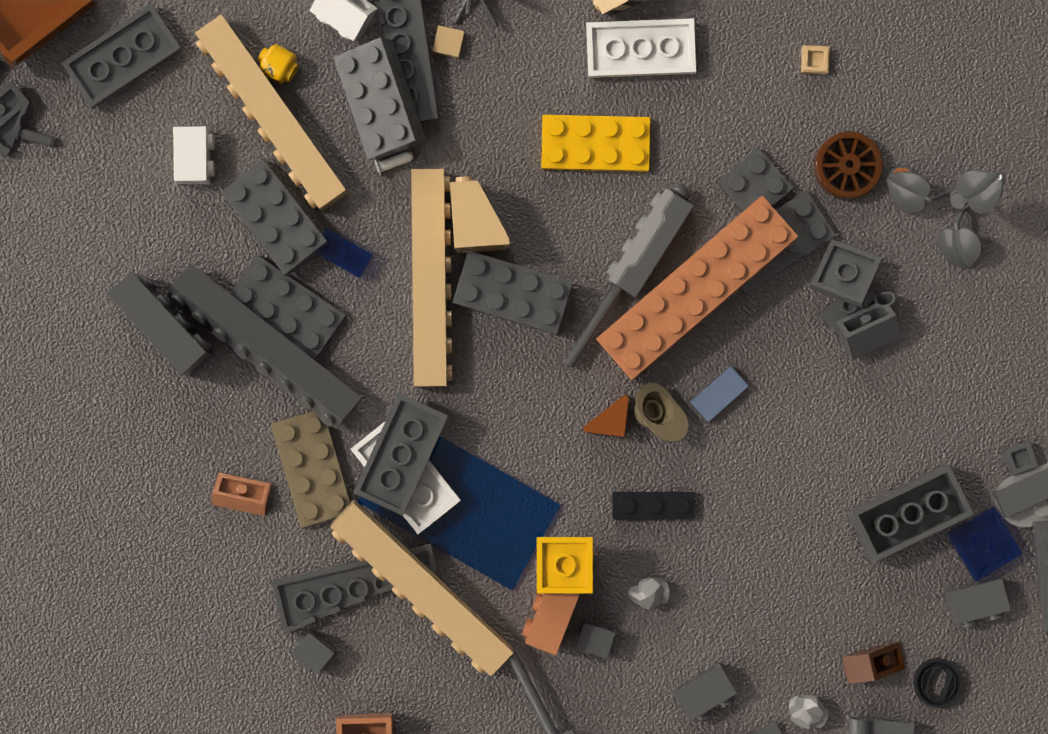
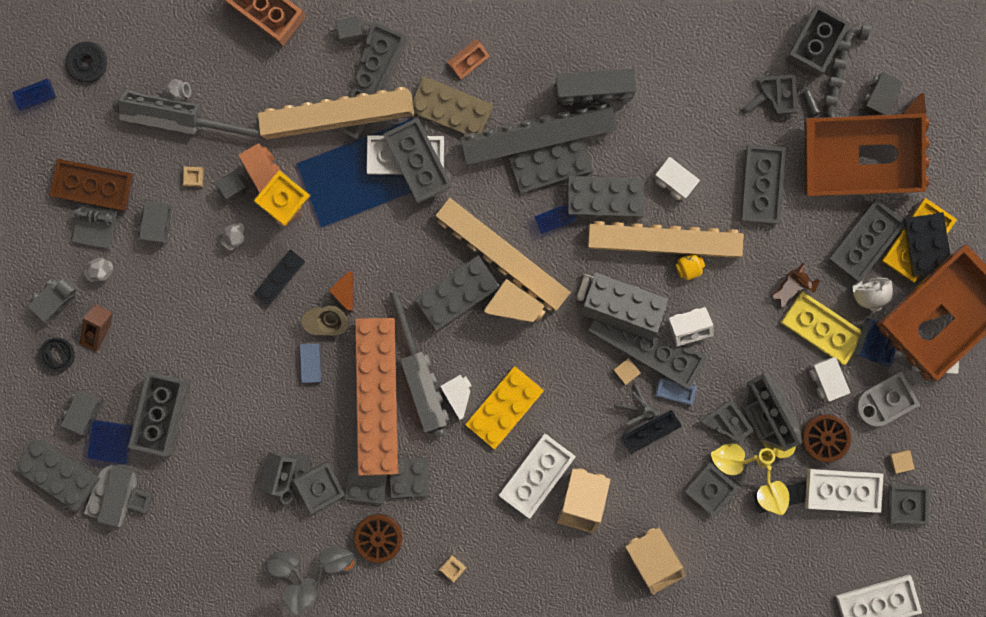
camera: 130 degrees right, 0 degrees up
(619, 693) = (193, 176): none -> tan tile
(622, 204) = (458, 393): none -> white slope

